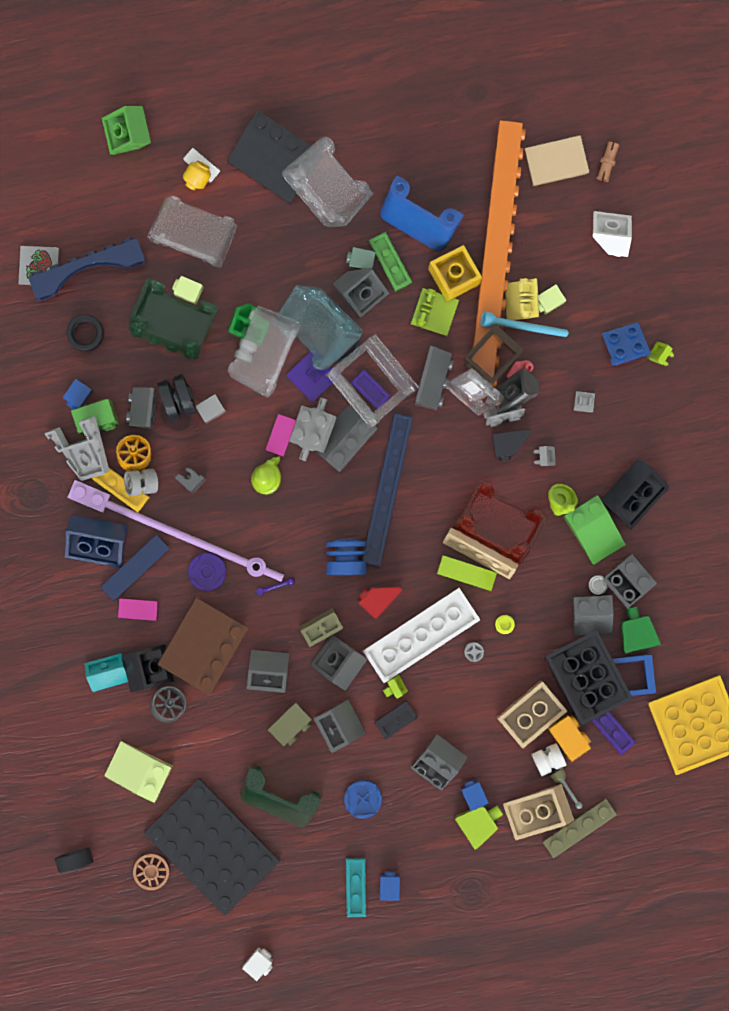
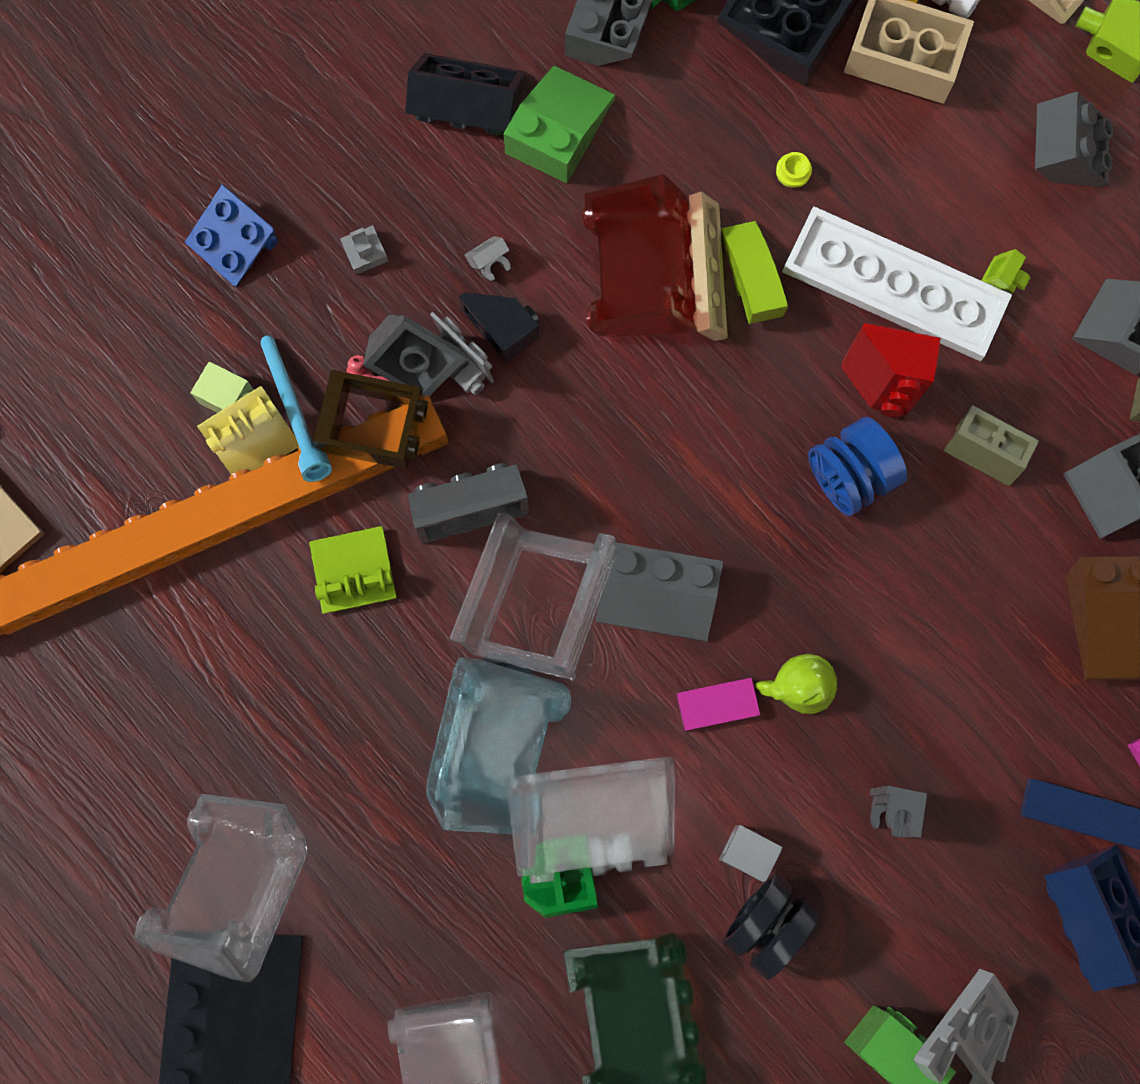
camera: 120 degrees left, 10 degrees down
(100, 500) = (1029, 956): lavender bar -> none
(115, 484) = (983, 925): yellow tile -> none
(133, 453) = (914, 945): light orange wheel -> none
(139, 482) = (946, 889): light grey wheel -> none
(143, 407) = (826, 978): dark grey slope -> none
(187, 289) = (564, 1028): yellowish green brick -> none
(207, 572) = (1025, 690): dark purple tile -> none
(260, 591) = (995, 582): dark purple hinge -> none
(309, 379) = (592, 715): dark purple piece -> none
(312, 429) = (675, 653): light grey plate -> none
(338, 662) = (1029, 384): dark grey slope -> none
(360, 259) = (332, 746): sand green brick -> none
(361, 290) = (385, 715): dark grey slope -> none
(370, 389) = (547, 599): dark purple tile -> none
(387, 489) = (692, 475): dark blue tile -> none
(390, 261) = (307, 696): bright green tile -> none
(395, 719) = (1053, 250): black hinge -> none
(417, 221) = (206, 691): blue windscreen -> none
(455, 273) = (264, 570): yellow brick -> none
(471, 388) = (442, 424): clear container -> none
(473, 651) = (870, 181): light grey wheel -> none
(474, 794) = (1085, 63): blue brick -> none
(562, 499) = (543, 187): lime hat -> none
(592, 614) = (690, 51): dark grey slope -> none
(597, 585) = (642, 69): white plate -> none
(613, 232) = (51, 353): white slope -> none
(660, 353) = (212, 173): lime tile -> none

